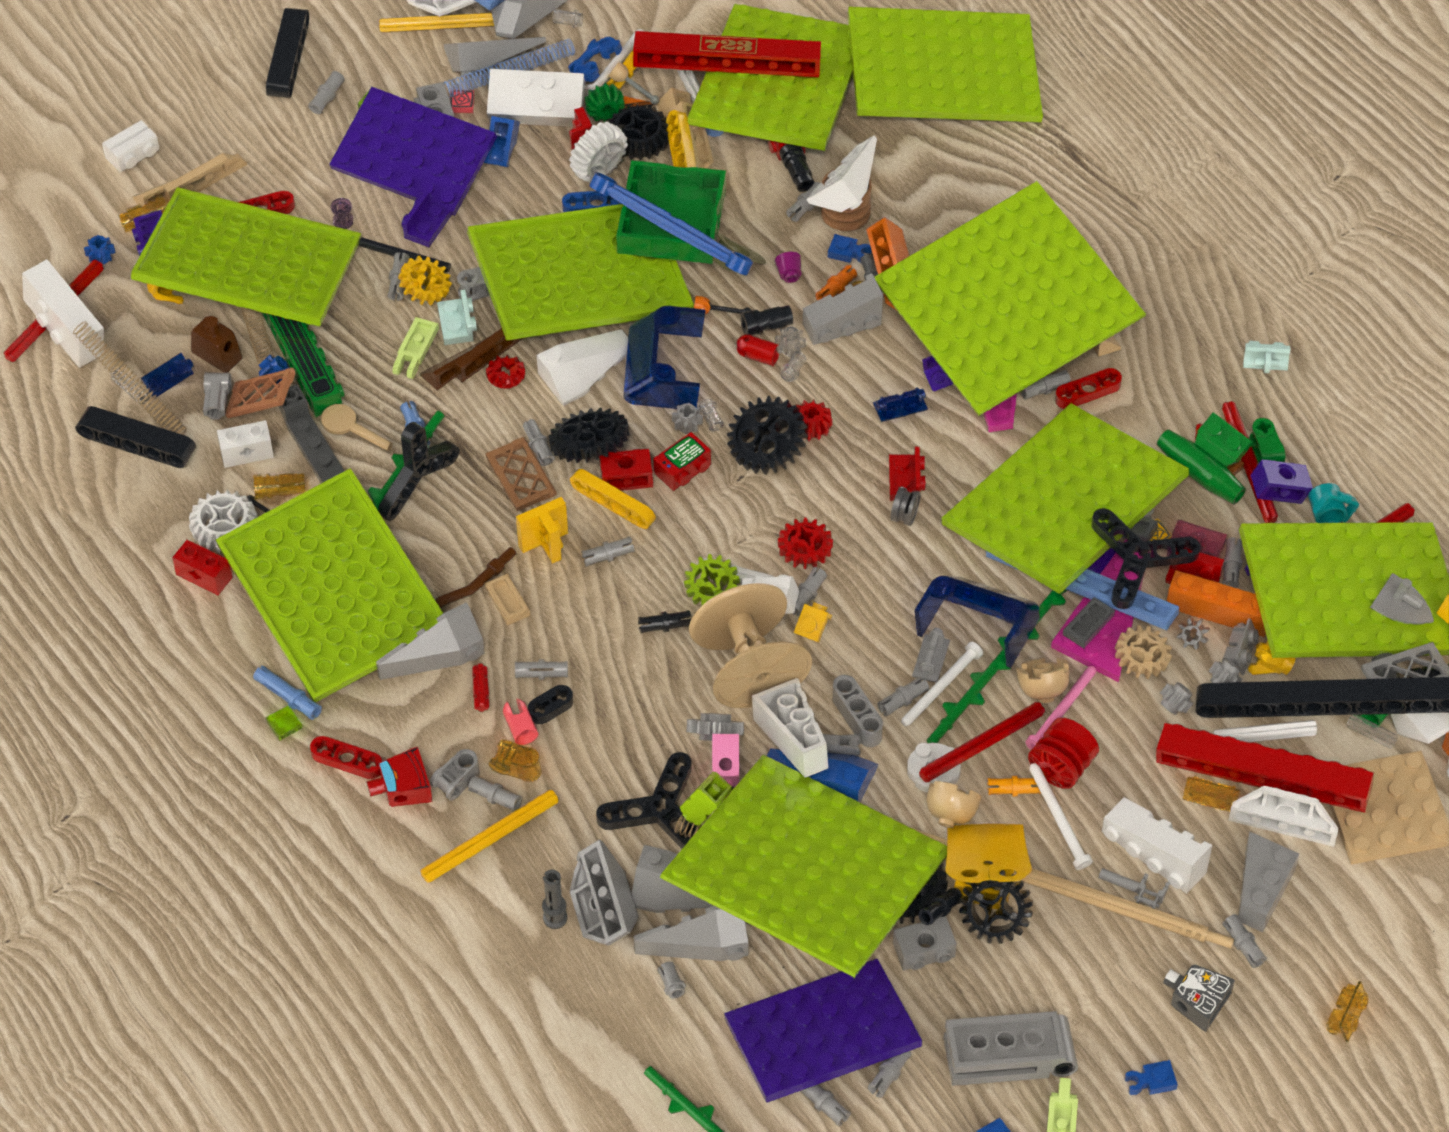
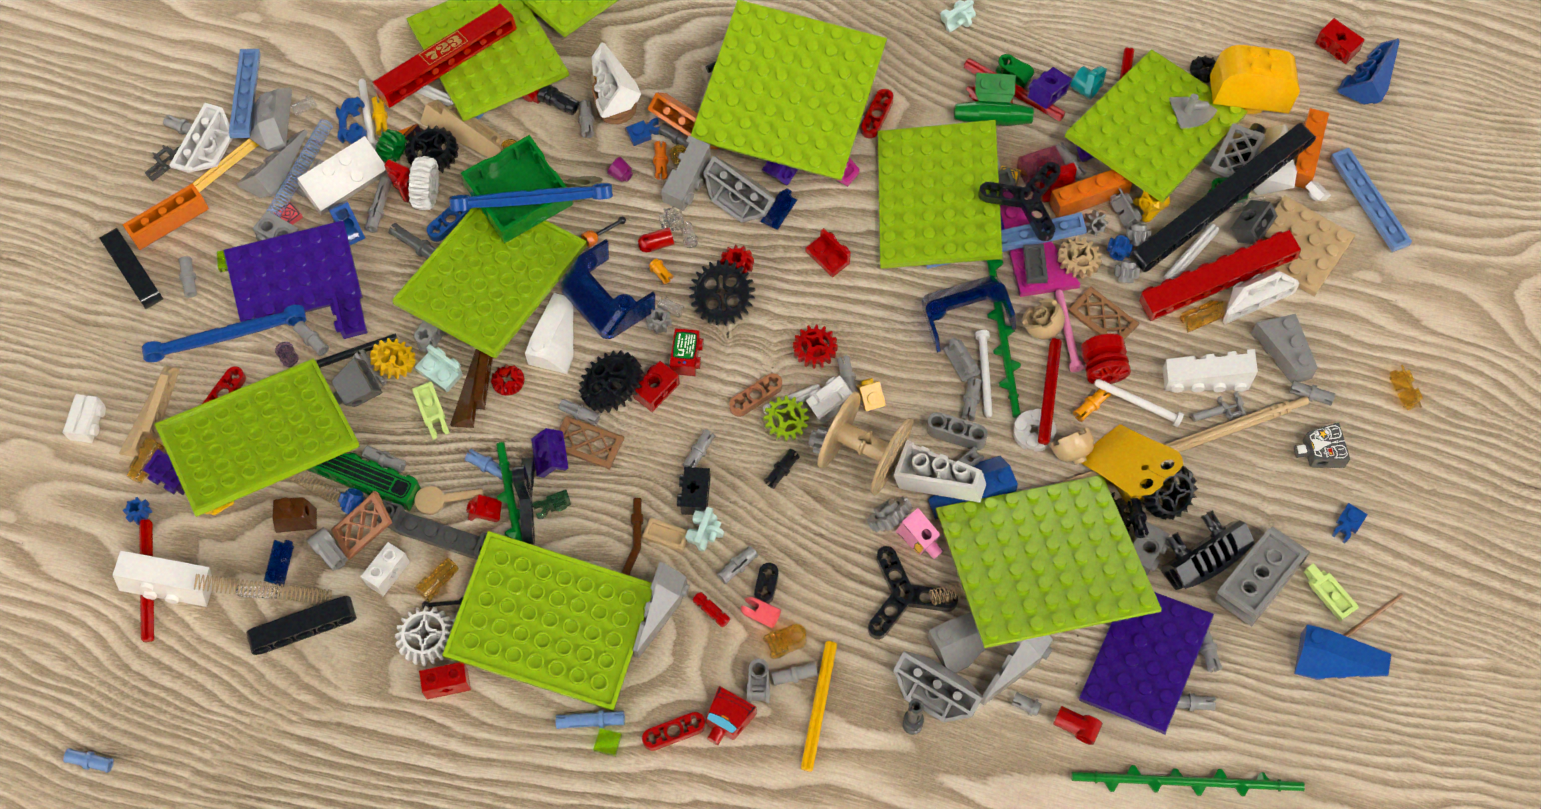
camera: 40 degrees left, 10 degrees up
(335, 357) = (384, 459): none -> light grey pin
(356, 28) = (165, 216): none -> orange brick
(371, 277) = (355, 384): none -> dark grey torso
(376, 215) = (311, 338): none -> light grey pin
(376, 459) = (484, 508): none -> red bracket
(379, 186) = (156, 351): none -> blue piece
(439, 498) = (554, 502): none -> clear green plate
(478, 455) = (549, 452): none -> dark purple bracket
(538, 149) = (376, 211): none -> light grey pin
(543, 528) = (650, 468): yellow bracket -> none
(544, 203) = (422, 247): none -> dark grey pin
(545, 618) = (707, 531): none -> light aqua hips
(567, 581) = (695, 479): none -> black brick
(612, 498) = (666, 412): yellow beam -> none
(620, 74) = (382, 119): hinge -> none
(678, 129) = (476, 137): yellow beam -> none
(699, 1037) = (1083, 727): none -> red piece
(702, 537) = (740, 398): none -> nougat beam
(705, 799) = (938, 567): lime brick -> none
(734, 384) = (660, 270): none -> light orange pin
(766, 320) = (644, 213): black axle -> none
(875, 357) = (736, 191): none -> light grey wedge
(905, 506) = (852, 274): flat silver wheel -> none
(971, 992) = (1210, 555): none -> black piece
(1108, 696) = (1104, 302): none -> medium nougat window
(1193, 672) = (1119, 247): none -> blue gear
(1357, 747) = (1254, 221): none -> dark grey brick

